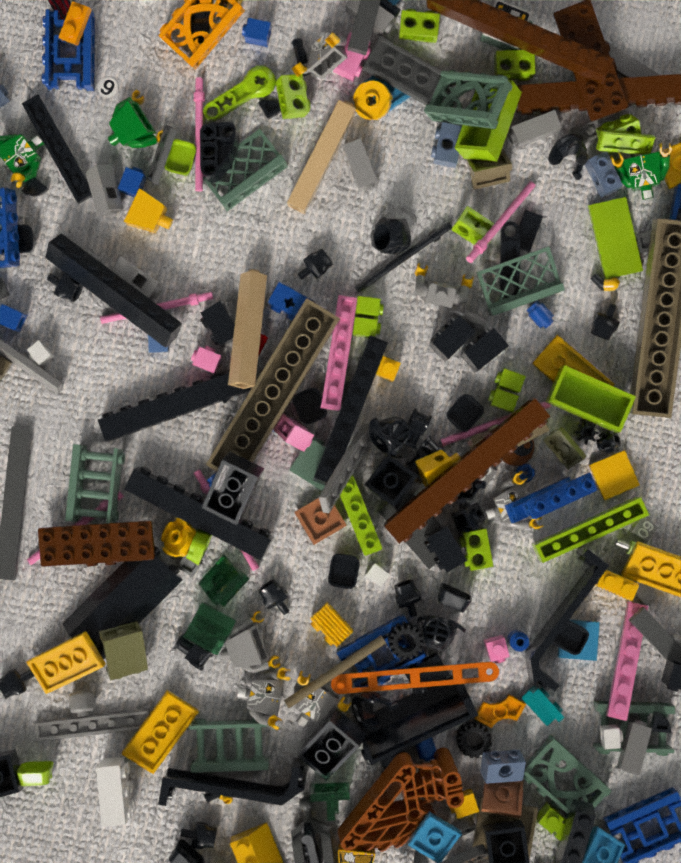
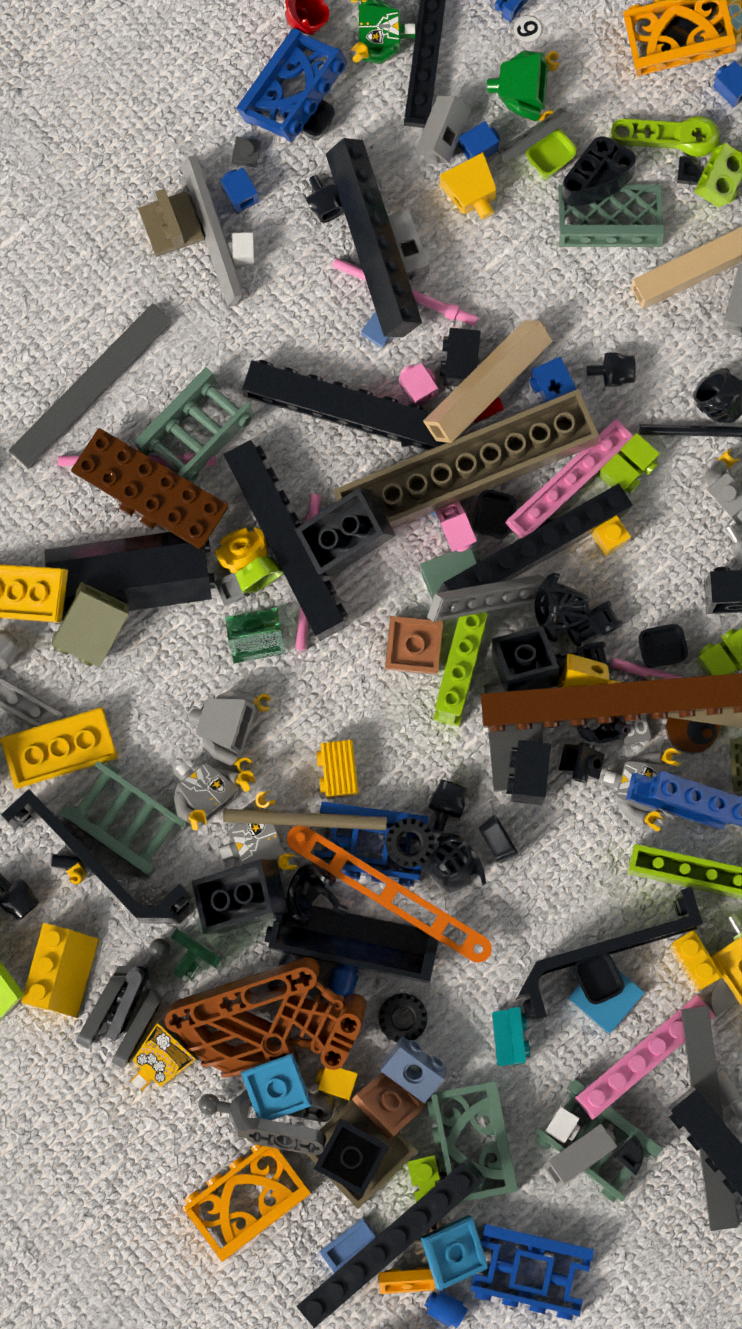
camera: 40 degrees right, 10 degrees down
(34, 188) = (369, 76): black tile -> none
(193, 652) = (163, 691): black connector -> none
(199, 98) = (618, 108): bright pink bar -> none
(209, 628) = (202, 670): clear green bracket -> none
(274, 595) = (298, 691): black piece -> none
(343, 571) = (397, 719): black piece -> none
(378, 573) = (433, 751): white plate -> none
(432, 660) = (407, 904): black brick -> none
(456, 333) = (702, 552): black brick -> none
(481, 547) = (569, 808): lime brick -> none
(496, 649) = (504, 933): bright pink brick -> none
(508, 708) = (468, 1014): light orange tile -> none
(514, 636) = (530, 947): blue brick -> none
(530, 472) = (689, 767): blue plate -> none

